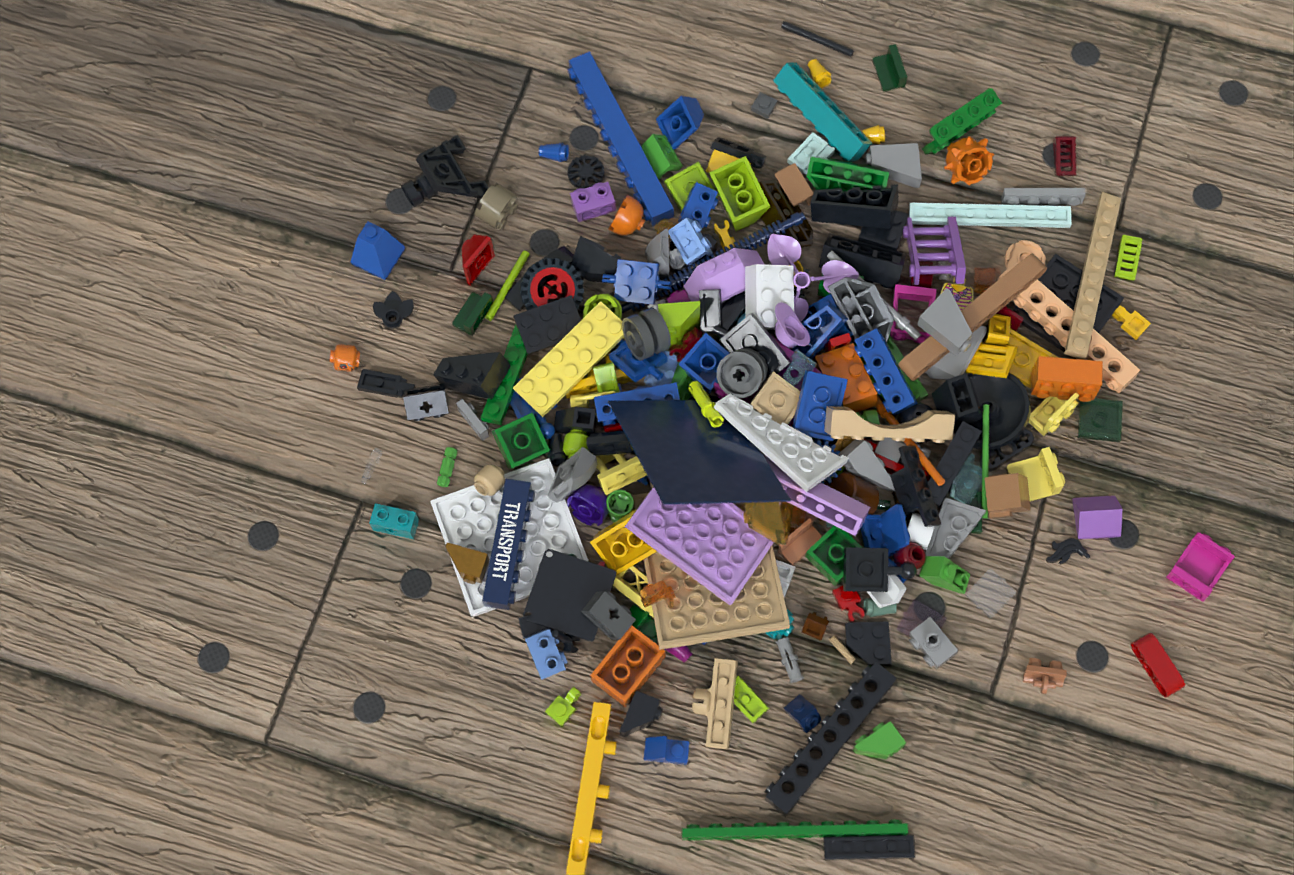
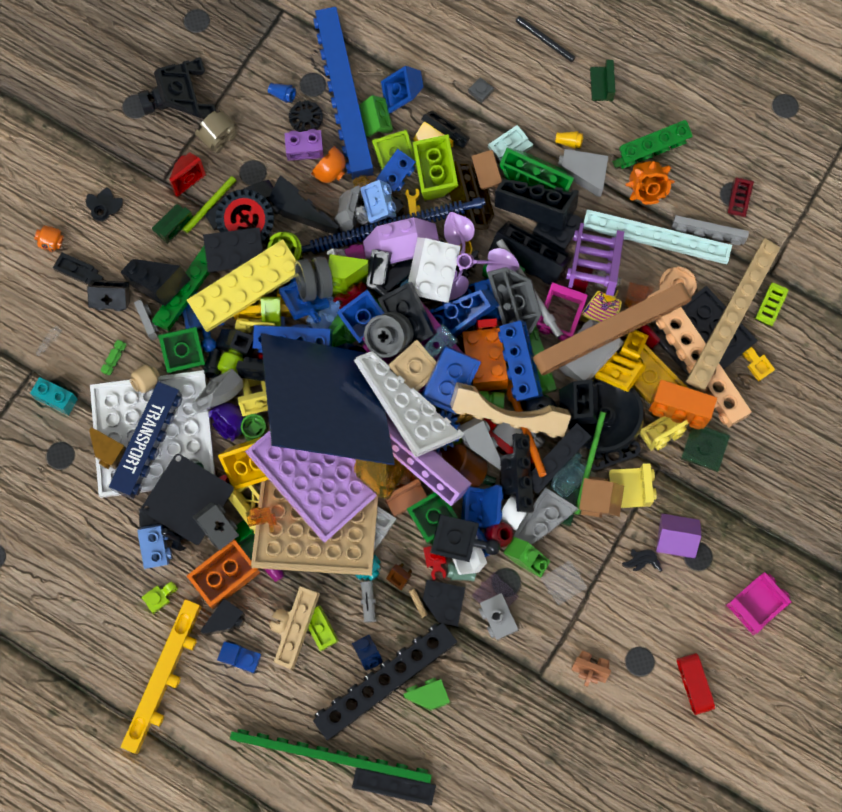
camera: 10 degrees right, 5 degrees up
(376, 251) = (102, 148): blue slope -> none
(636, 281) = (320, 228): plate -> none
(706, 404) = (349, 355): neon yellow pin -> none
(789, 328) = (442, 302): lavender piece -> none
(819, 74) = (537, 72): yellow cone -> none
(822, 112) = (530, 108): teal brick -> none
(946, 323) = (584, 330): light grey slope -> none

